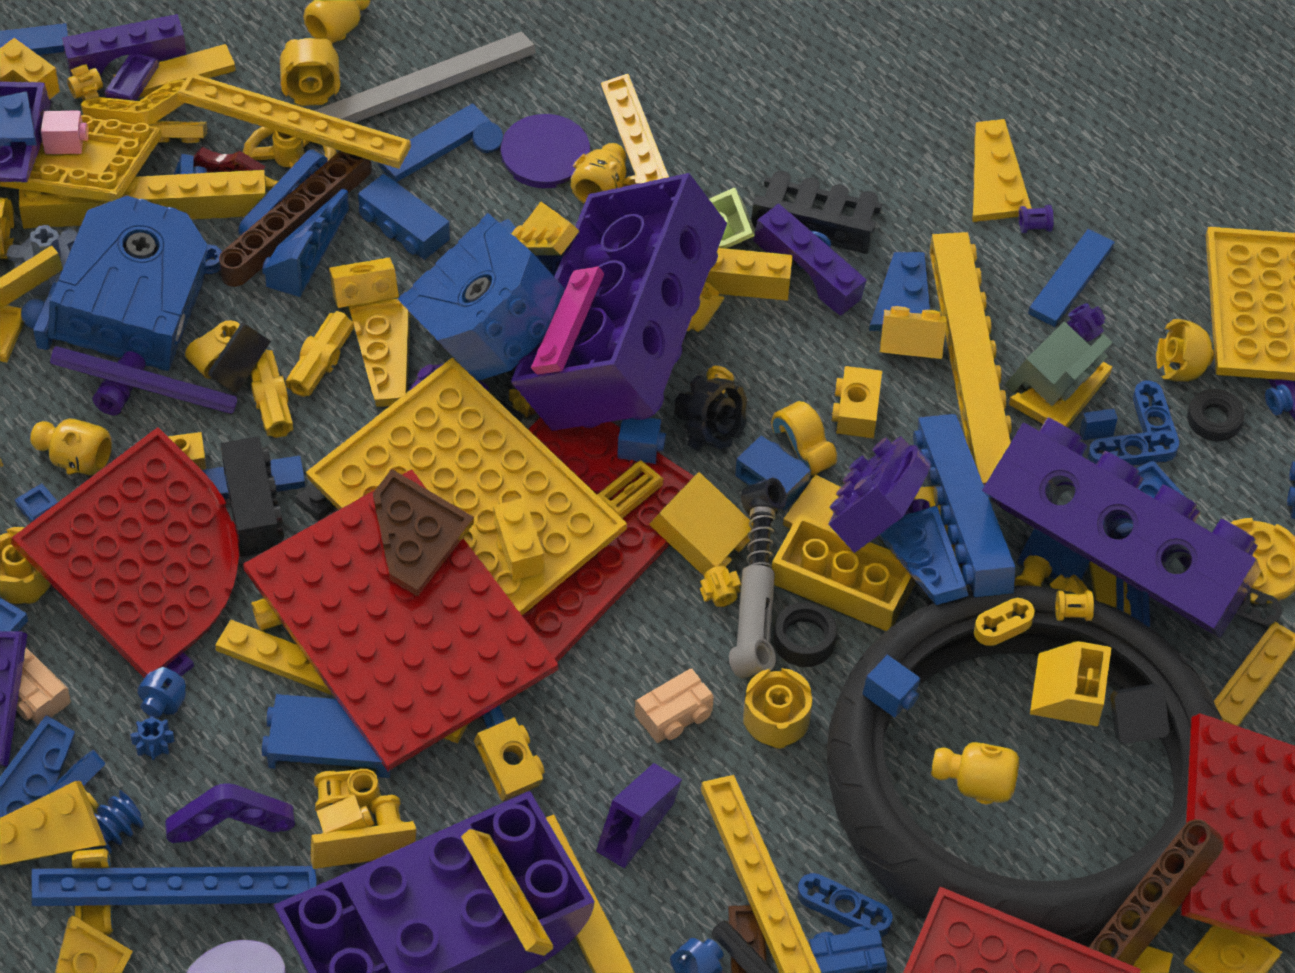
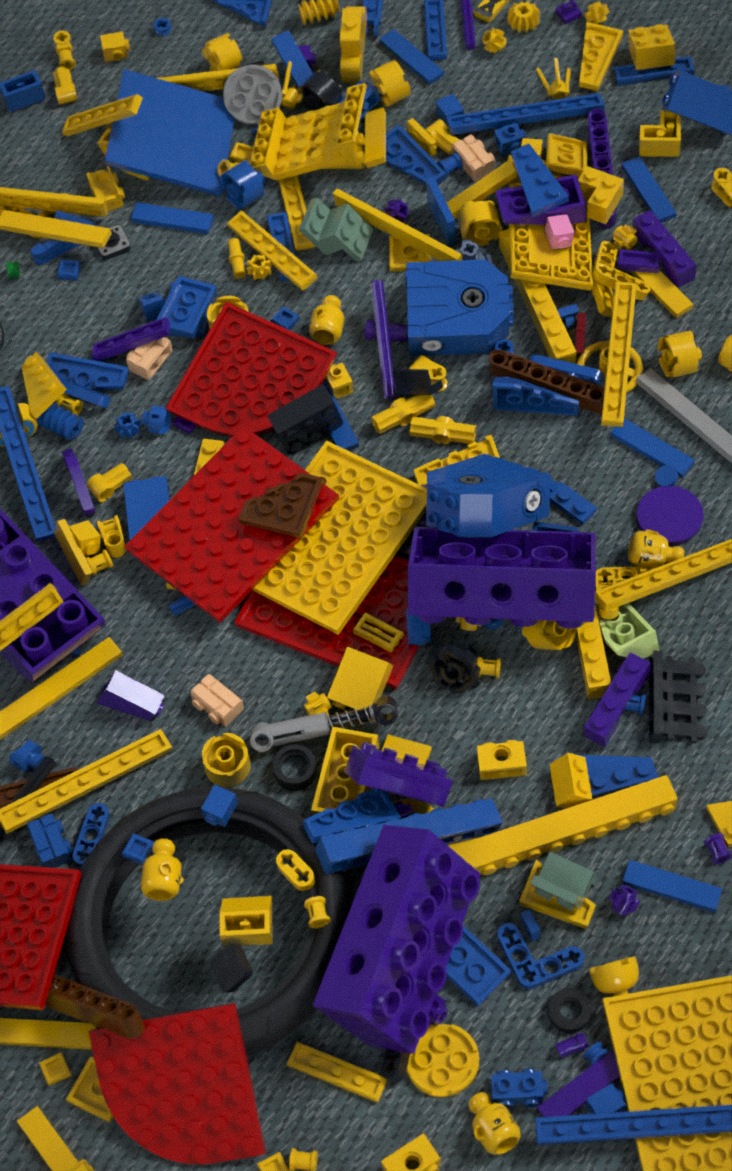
camera: 85 degrees right, 5 degrees up
(243, 770) = (104, 485): none -> yellow piece
(363, 282) = (506, 436): yellow brick -> none
(403, 217) = (574, 445): blue brick -> none
(507, 778) = (139, 615): yellow brick -> none
(518, 538) = (299, 568): yellow brick -> none
(545, 232) = (567, 520): yellow wing -> none
(567, 320) = (458, 538): dark pink plate -> none
(768, 460) = (423, 718): blue brick -> none
(806, 436) = (456, 730): yellow animal -> none
(928, 802) = (138, 849): none -> blue tile
(1261, 414) = (572, 1045): none -> dark purple pin

